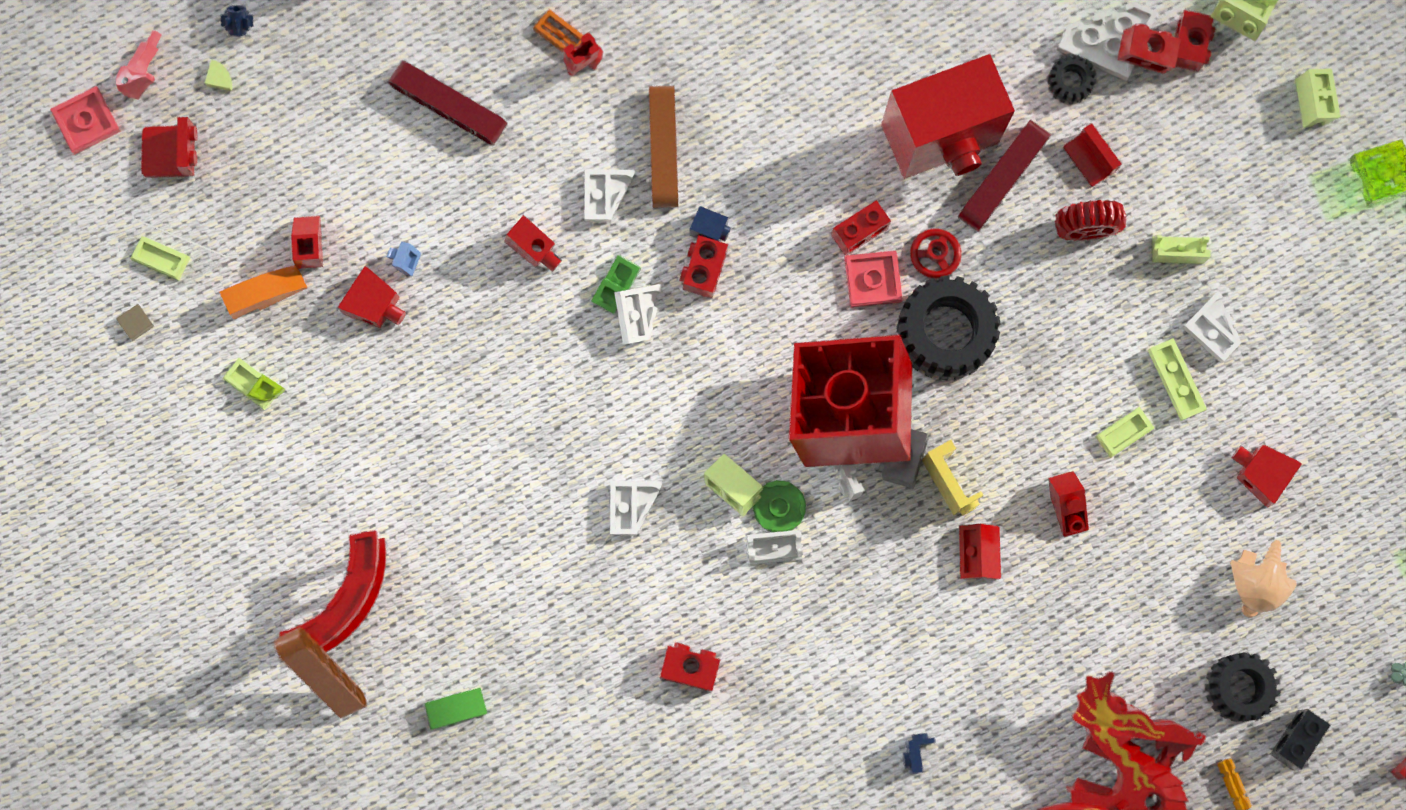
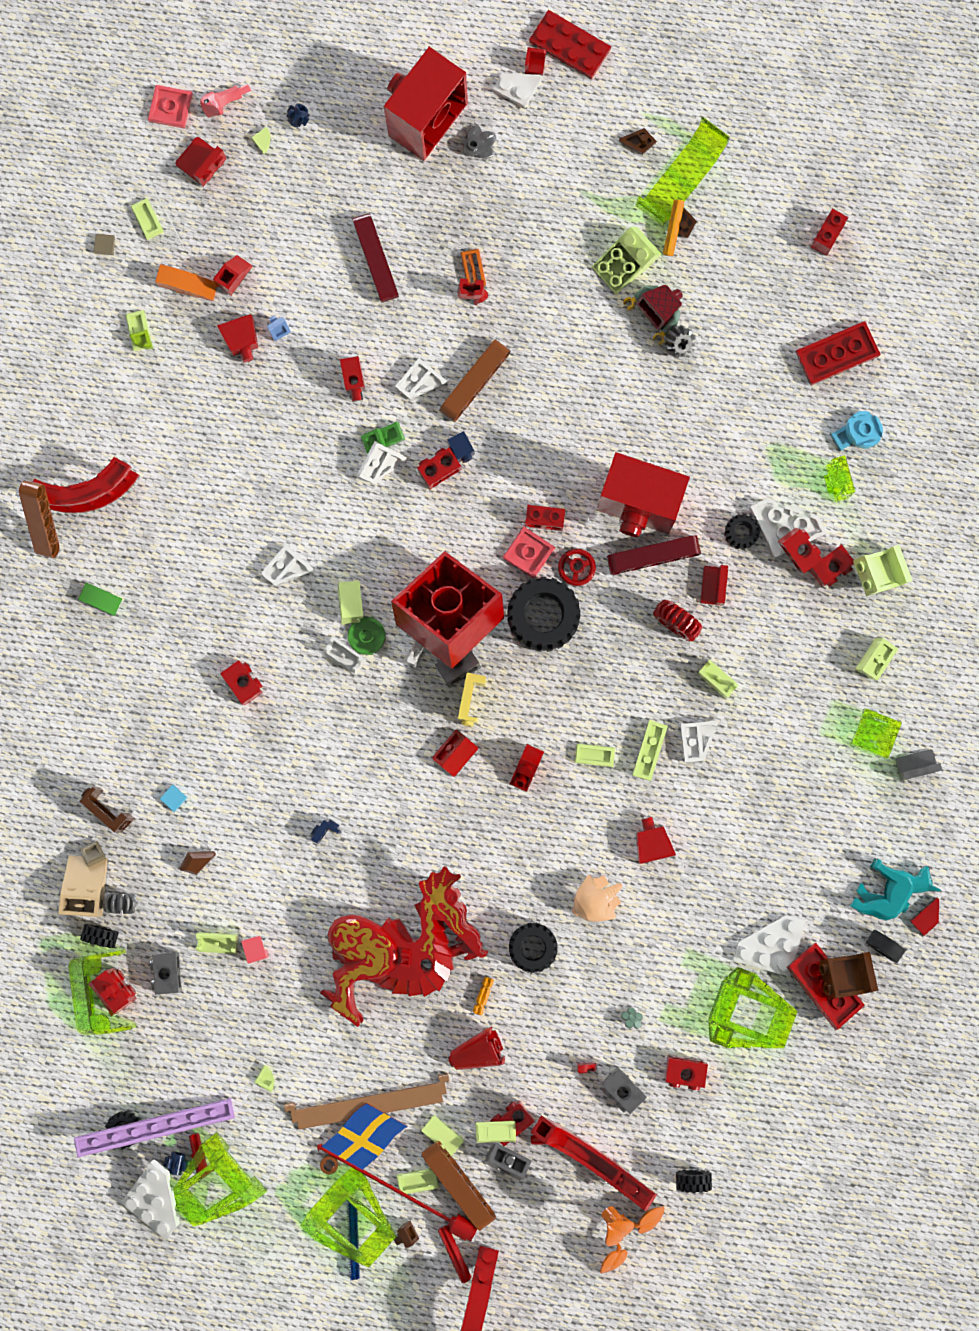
camera: 50 degrees right, 5 degrees up
(1300, 739) = (539, 1002): black brick -> none

